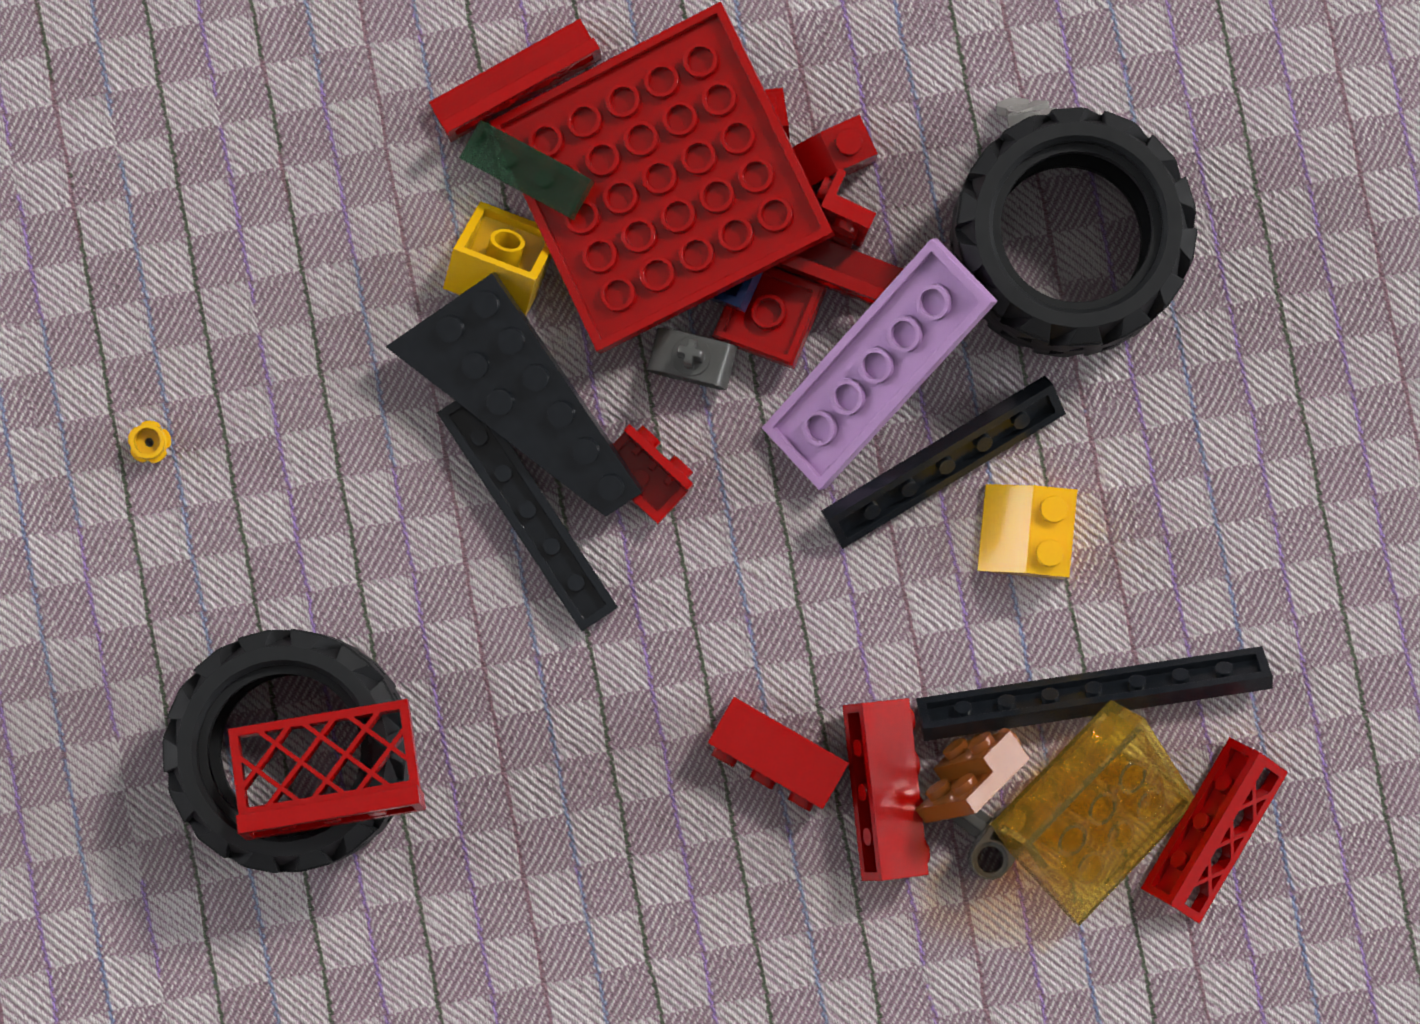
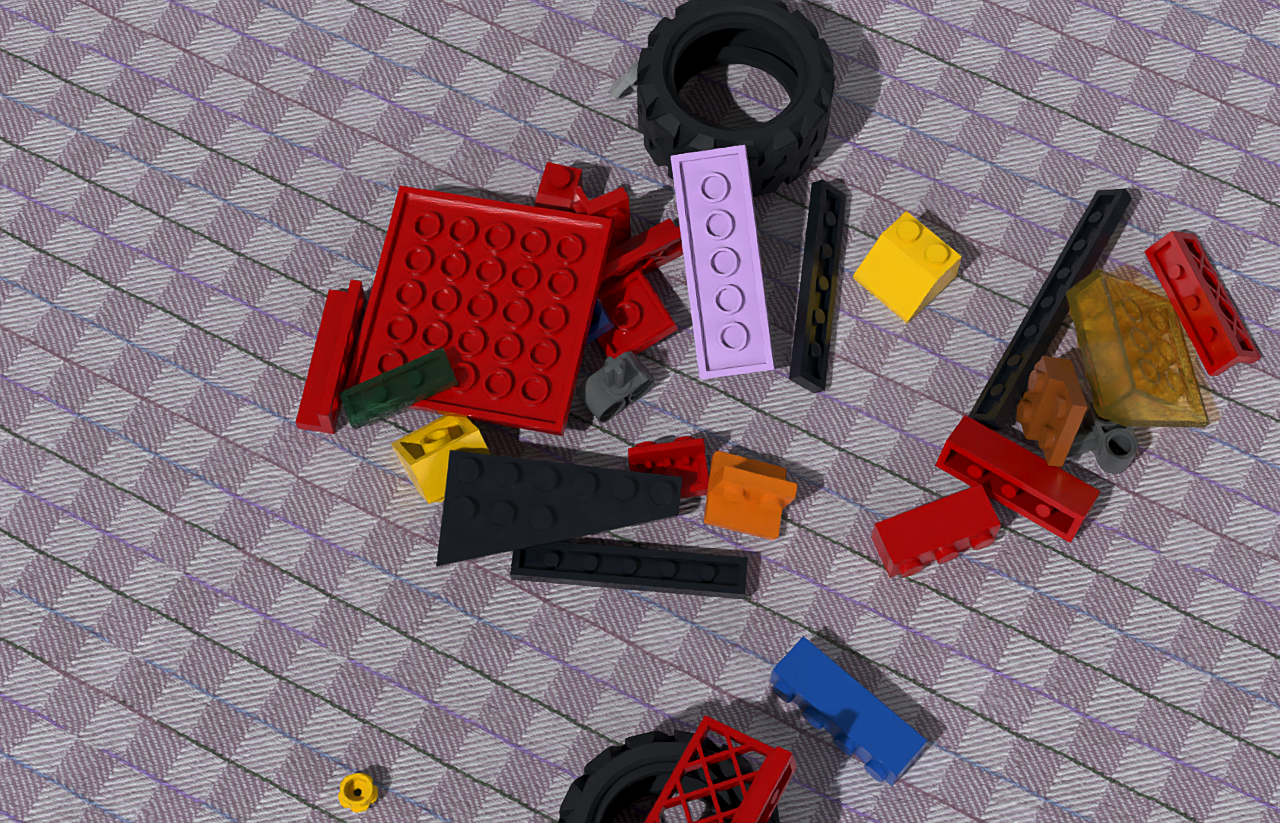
camera: 50 degrees left, 20 degrees down
(545, 801) = (847, 712): none -> blue brick
(677, 559) = (747, 495): none -> orange bracket

